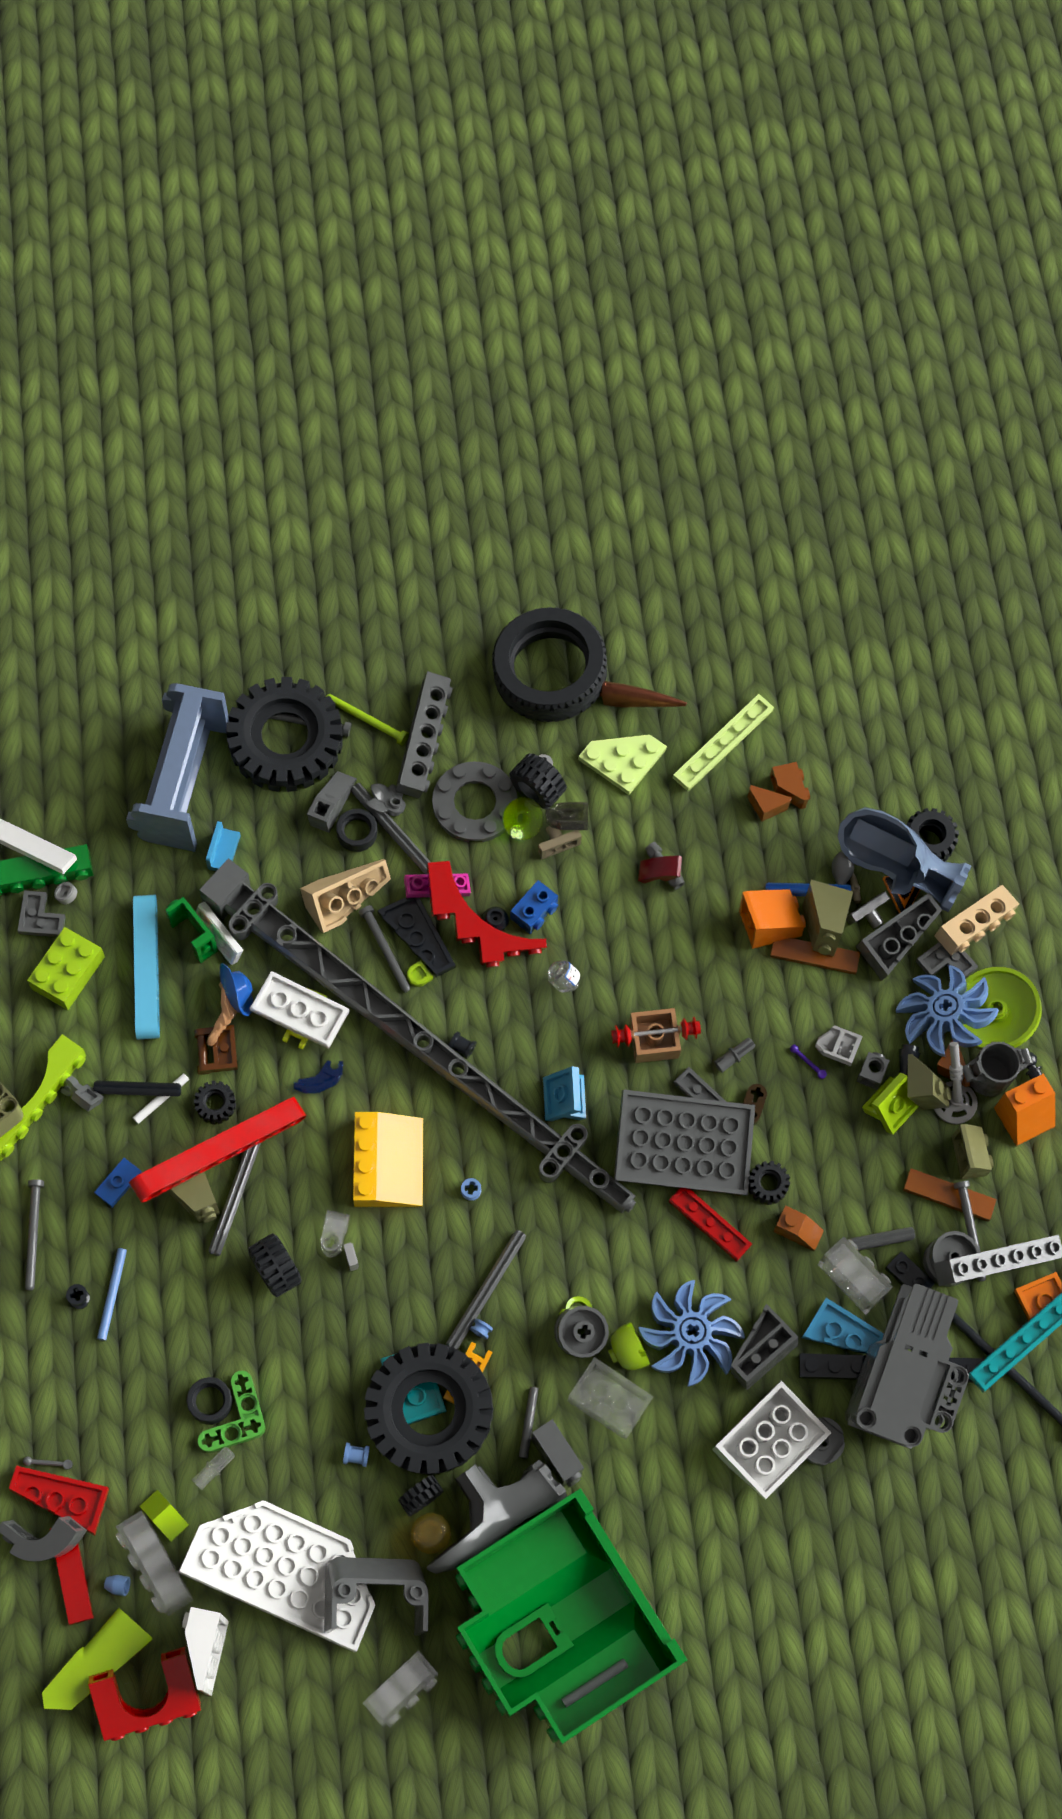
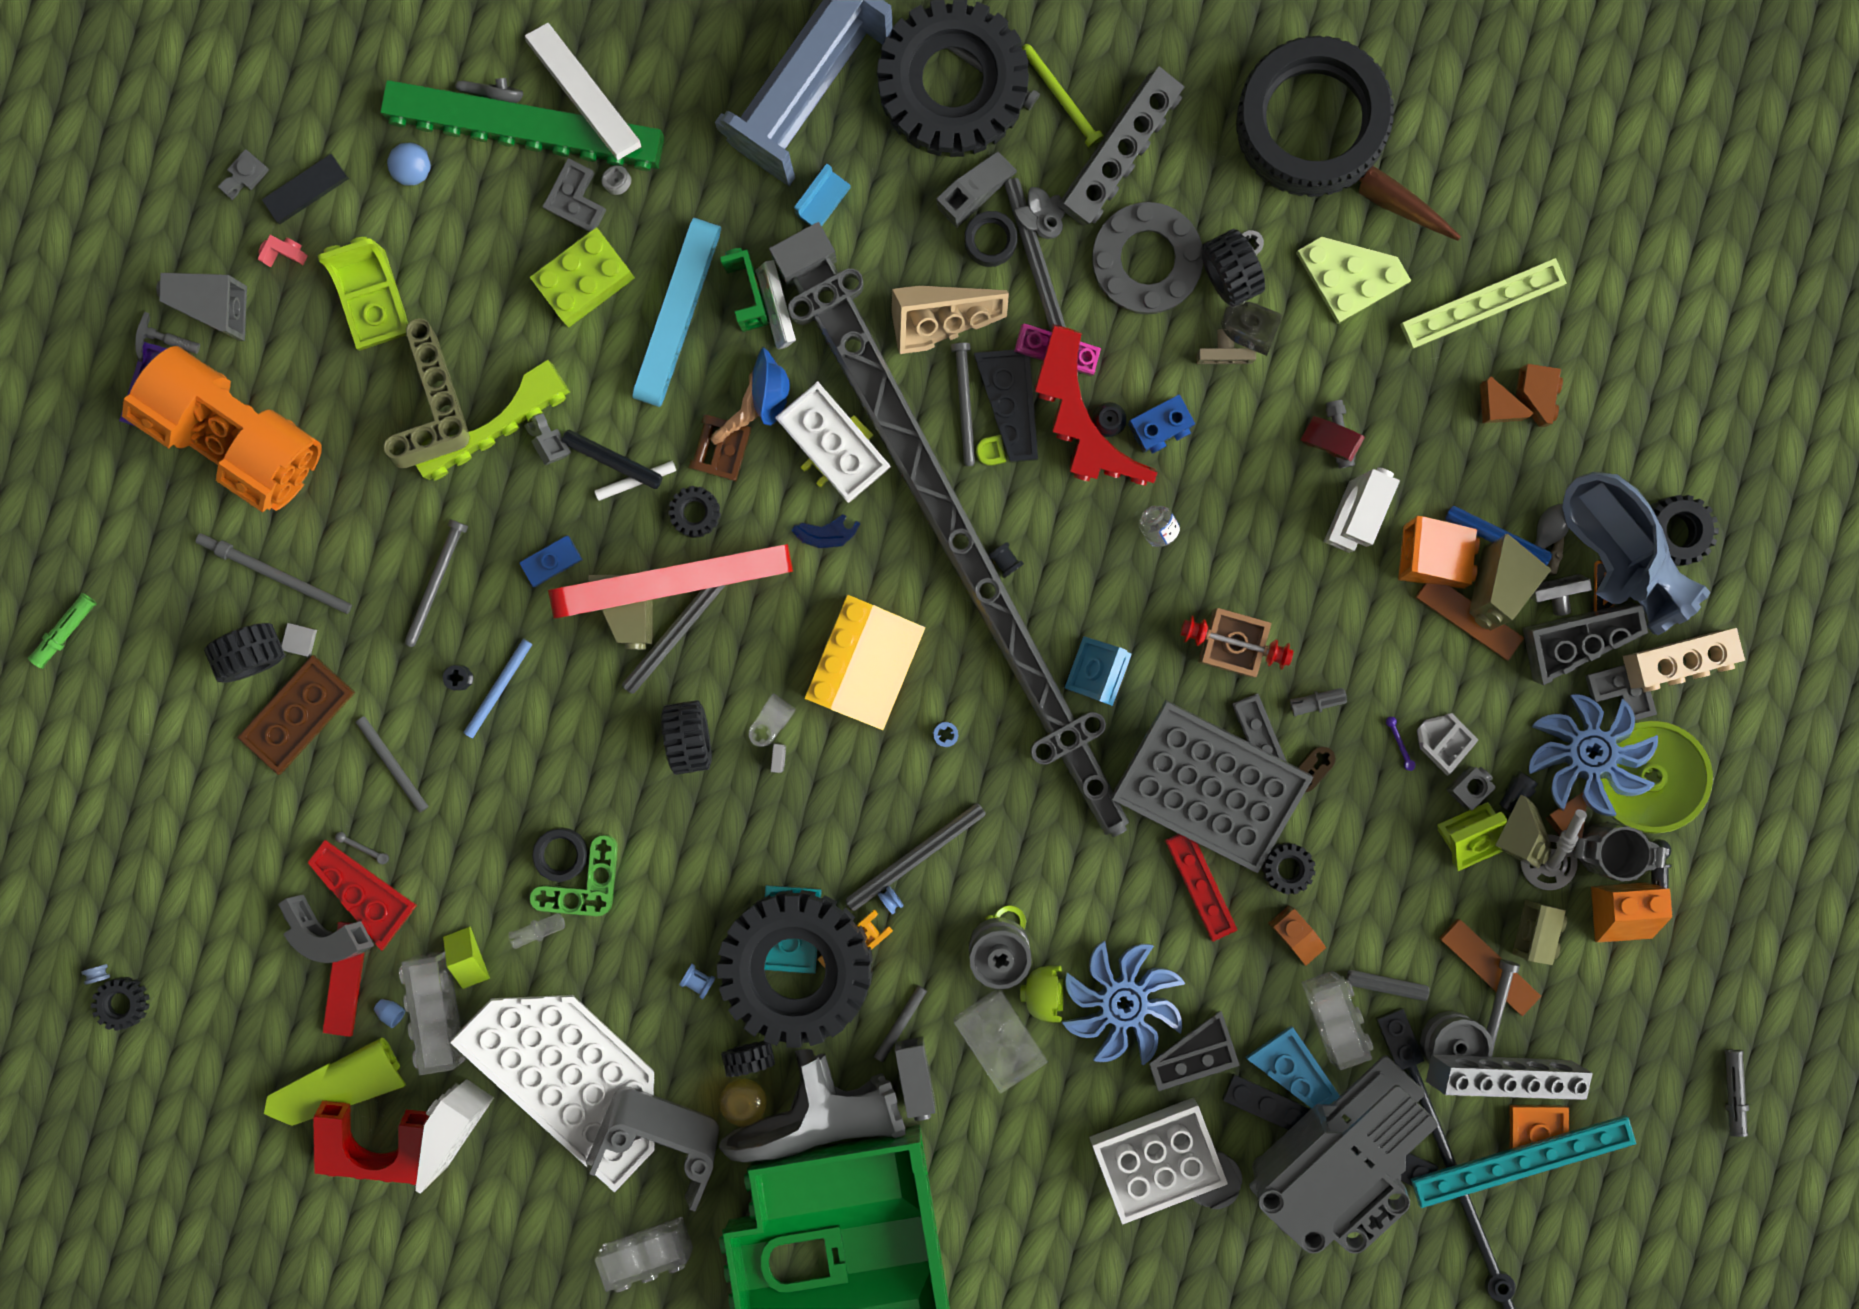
camera: 25 degrees right, 20 degrees up
(48, 1386) = (392, 764): none -> dark grey bar
(531, 821) = (1202, 314): clear neon green dish -> none
(701, 903) = (1362, 510): none -> white arch

